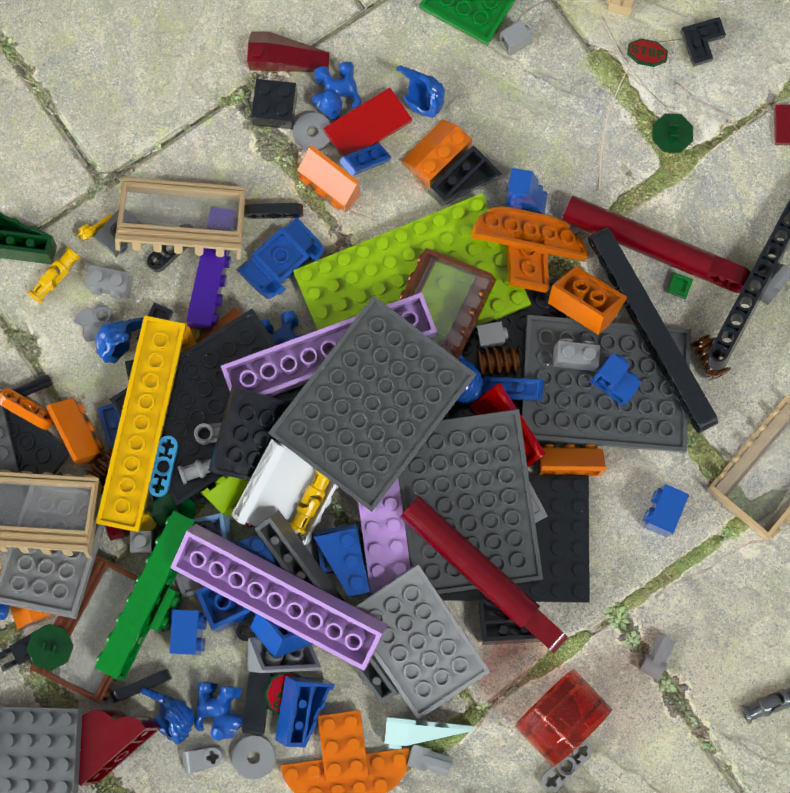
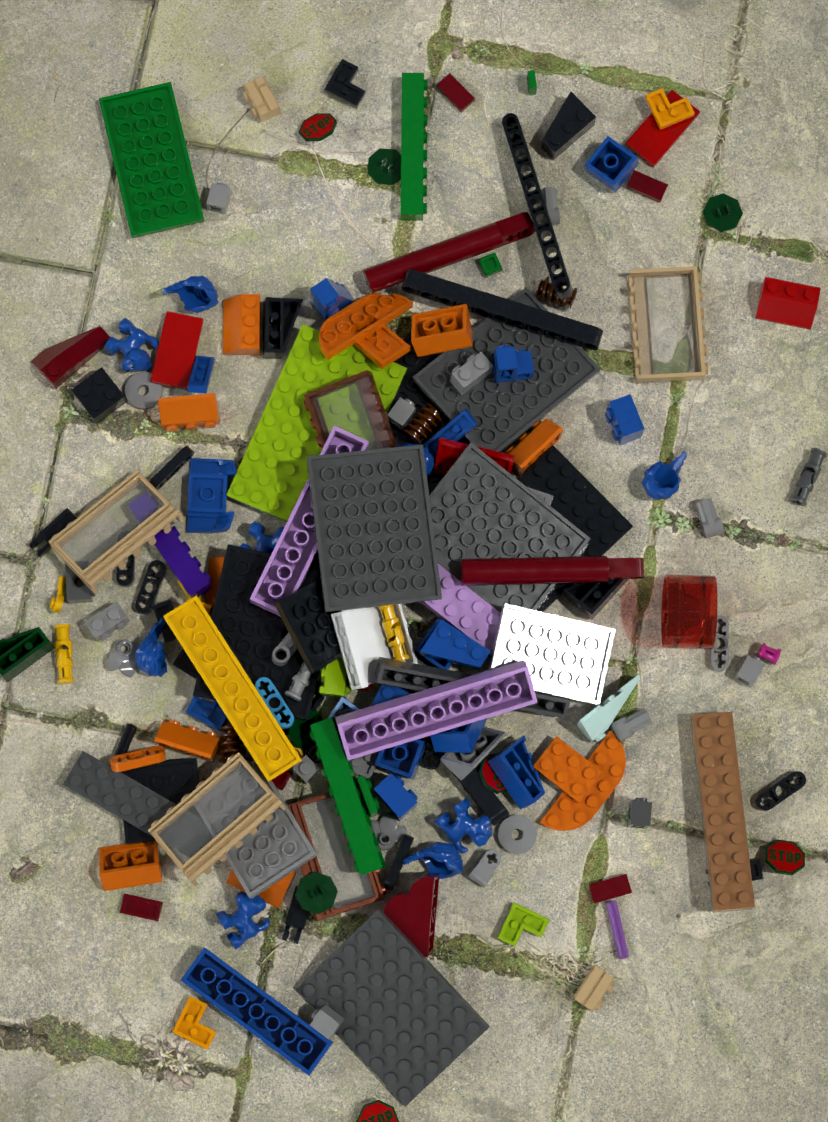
camera: 50 degrees left, 0 degrees up
(141, 172) = (53, 528): none -> black hinge
(152, 288) = (150, 572): none -> black beam
(158, 650) = (388, 828): none -> light grey plate
(649, 588) = (663, 480): none -> blue hair
(708, 135) = (412, 146): none -> green brick

